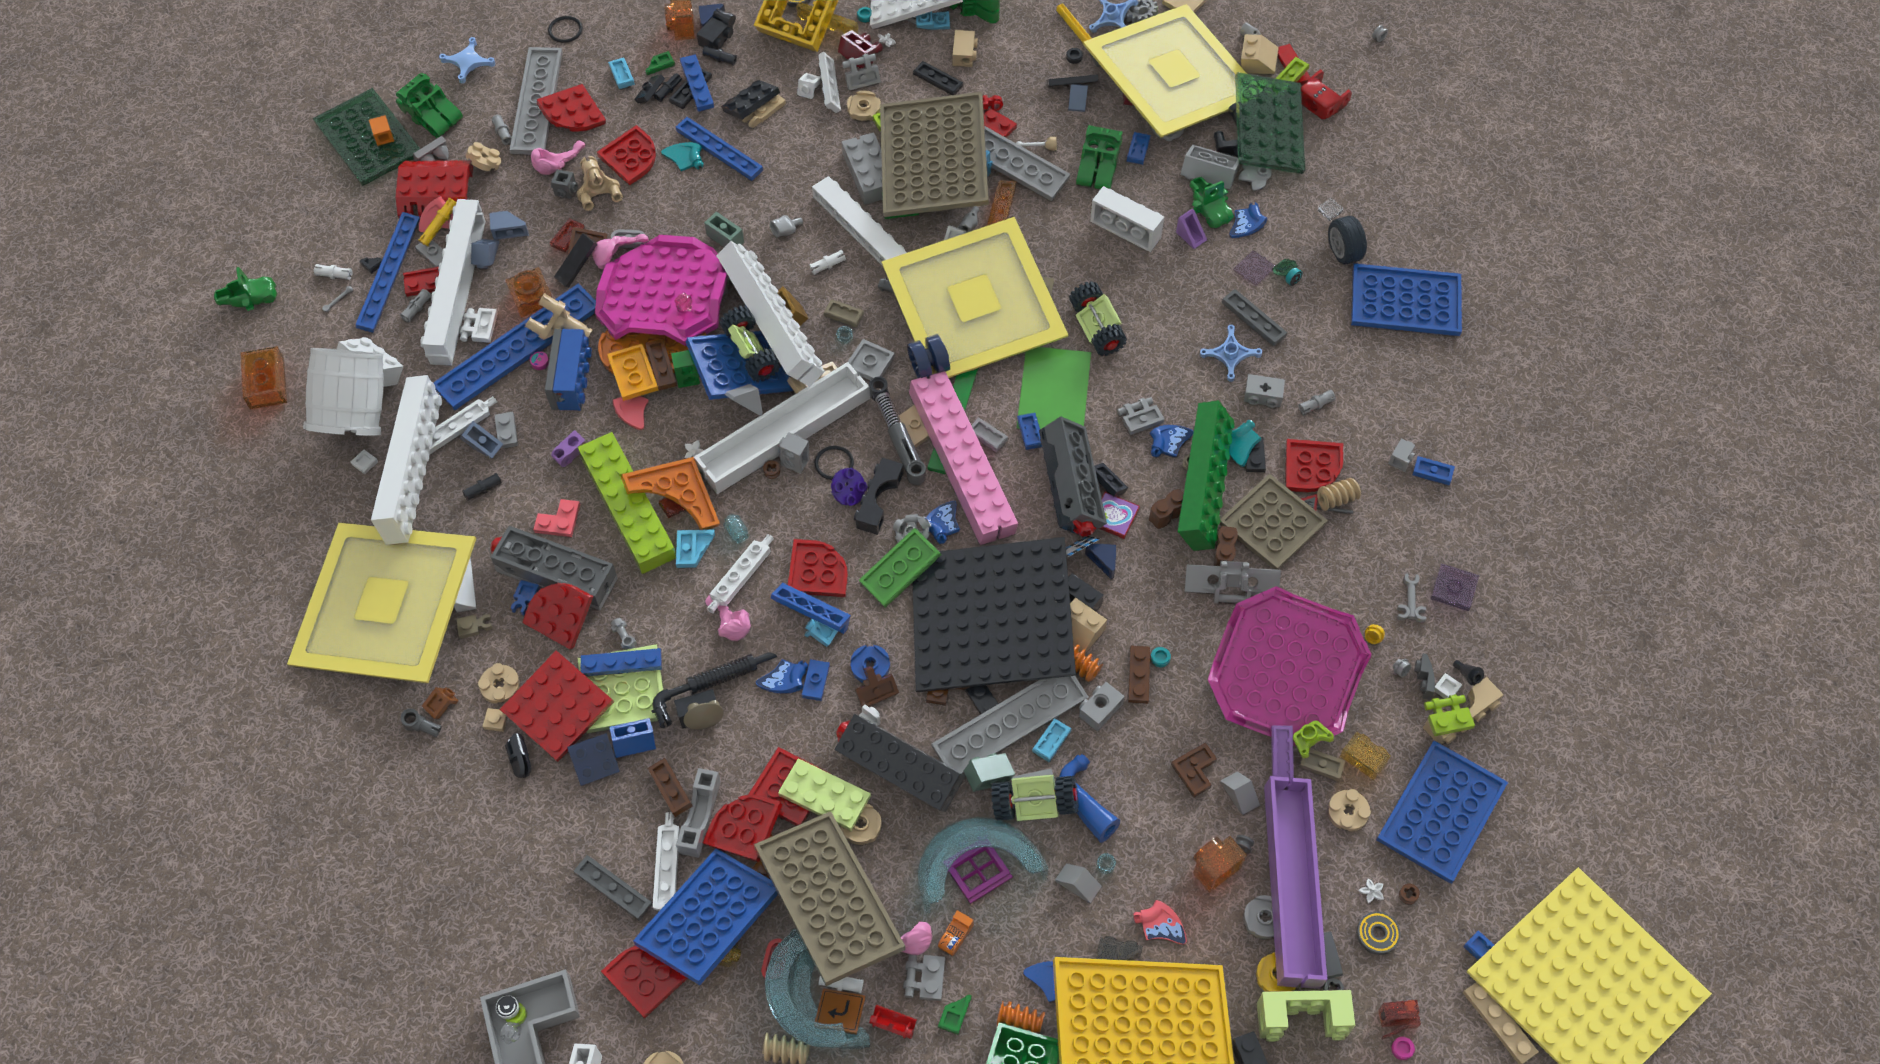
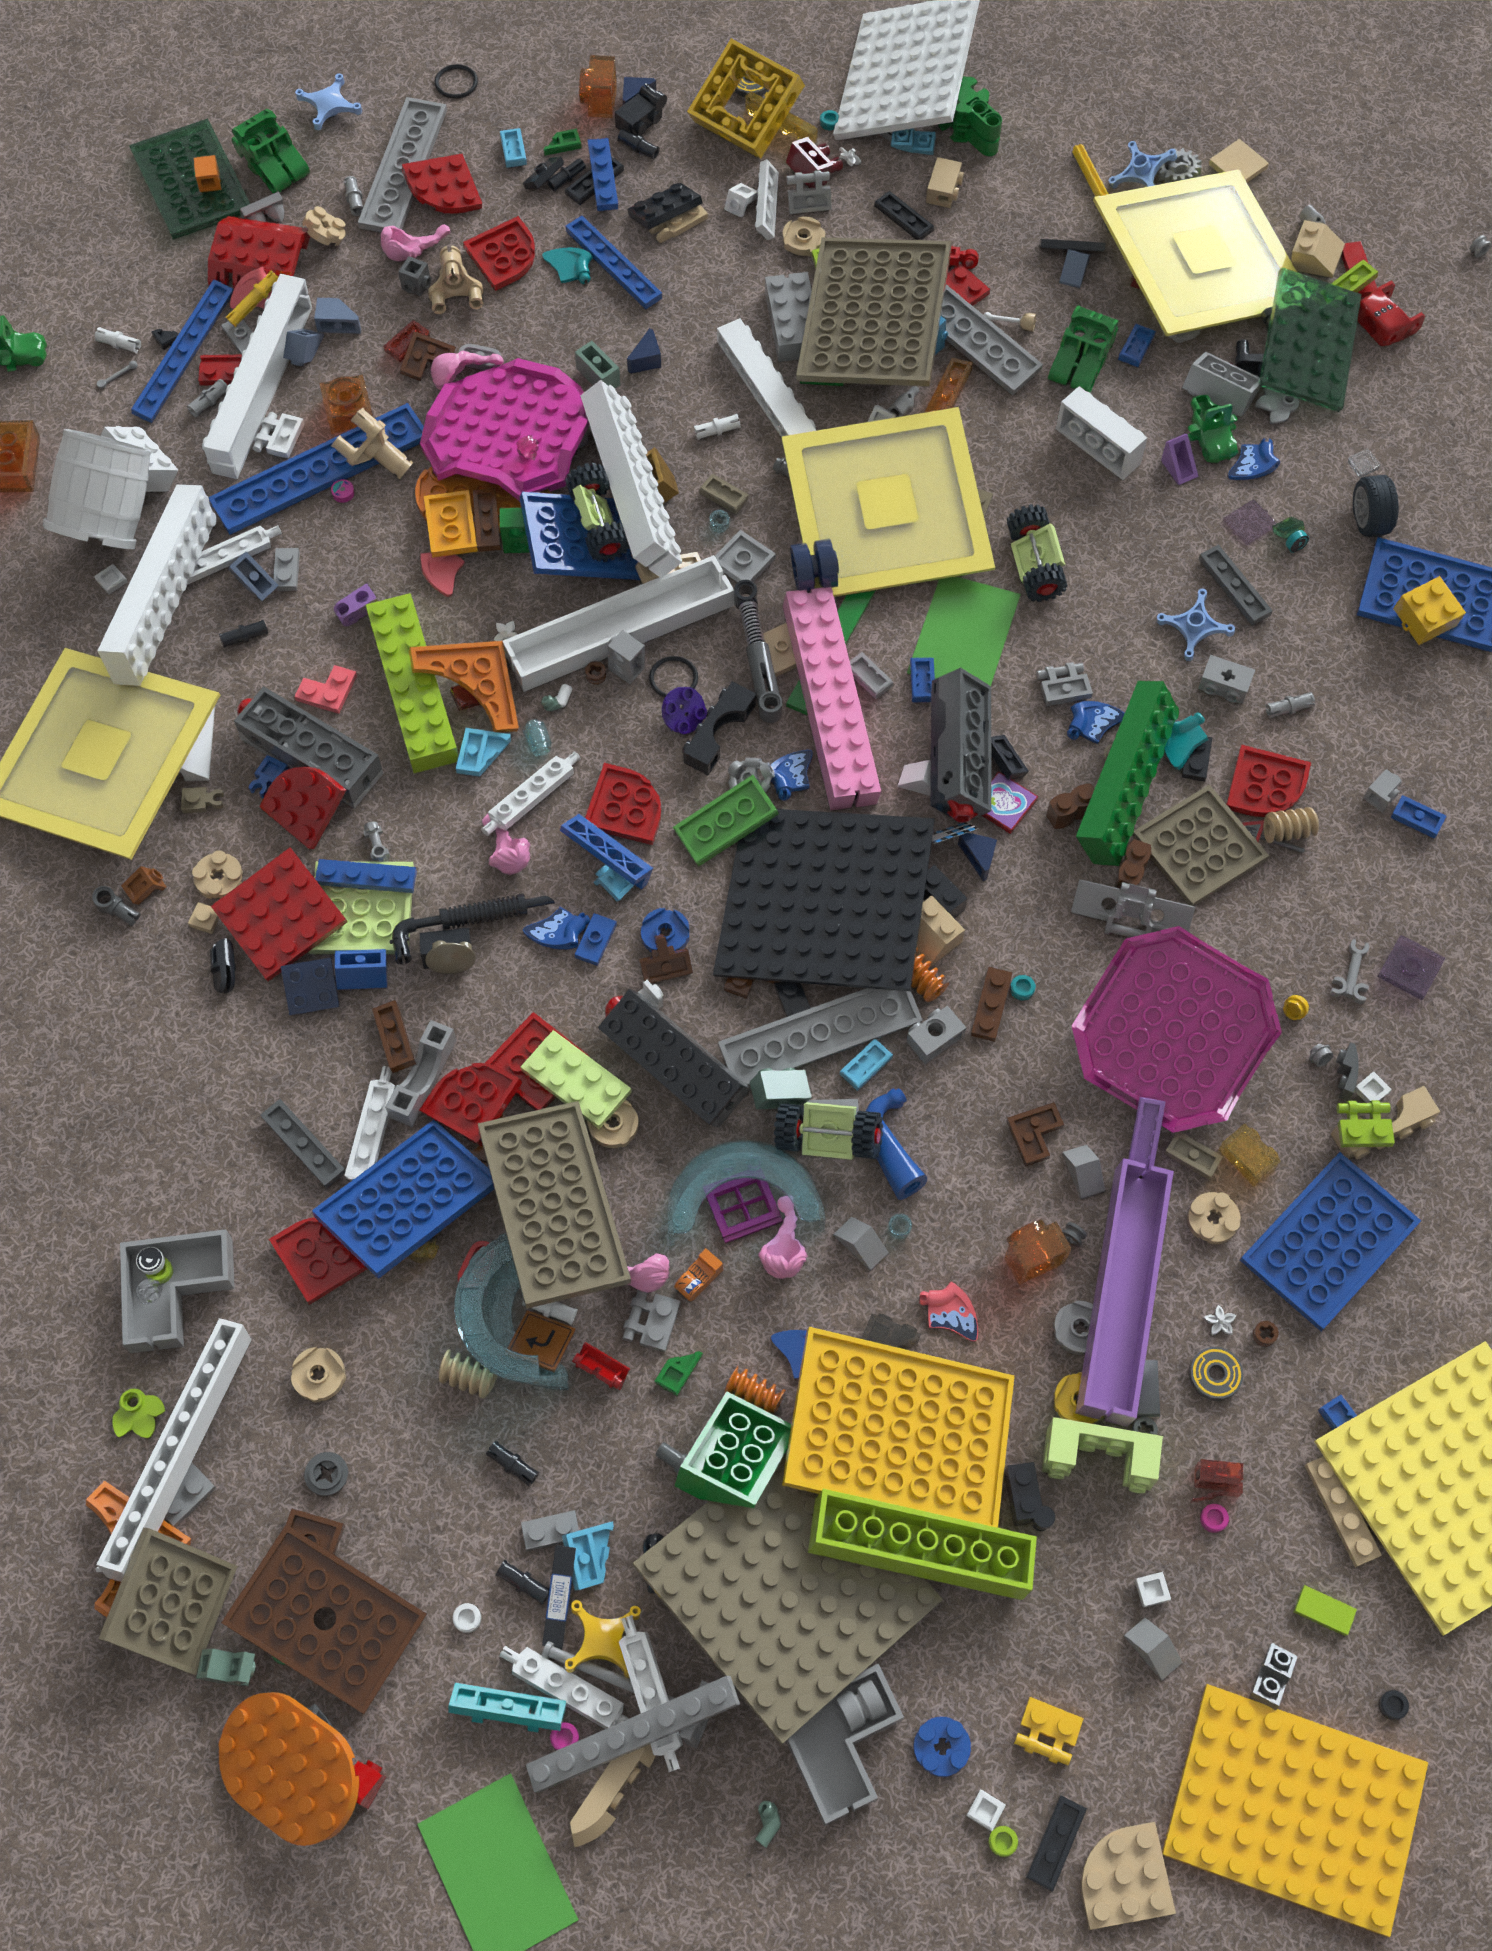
camera: 10 degrees right, 5 degrees up
(568, 369) = (373, 507): blue piece -> none
(575, 260) = (409, 373): black tile -> none
(743, 499) = (554, 703): none -> arm
(748, 397) = (581, 578): light grey slope -> none
(759, 216) = (645, 354): none -> dark blue slope
(784, 225) = (673, 372): light grey piece -> none
(1019, 903) = (784, 1254): none -> bright pink hair
(1043, 507) = (916, 777): none -> white slope
(1074, 55) = (1082, 214): black tile -> none
(1310, 735) = (1185, 1117): lime piece -> none
(1406, 312) = (1429, 610): none -> yellow brick
(1471, 673) = (1406, 1078): black cone -> none

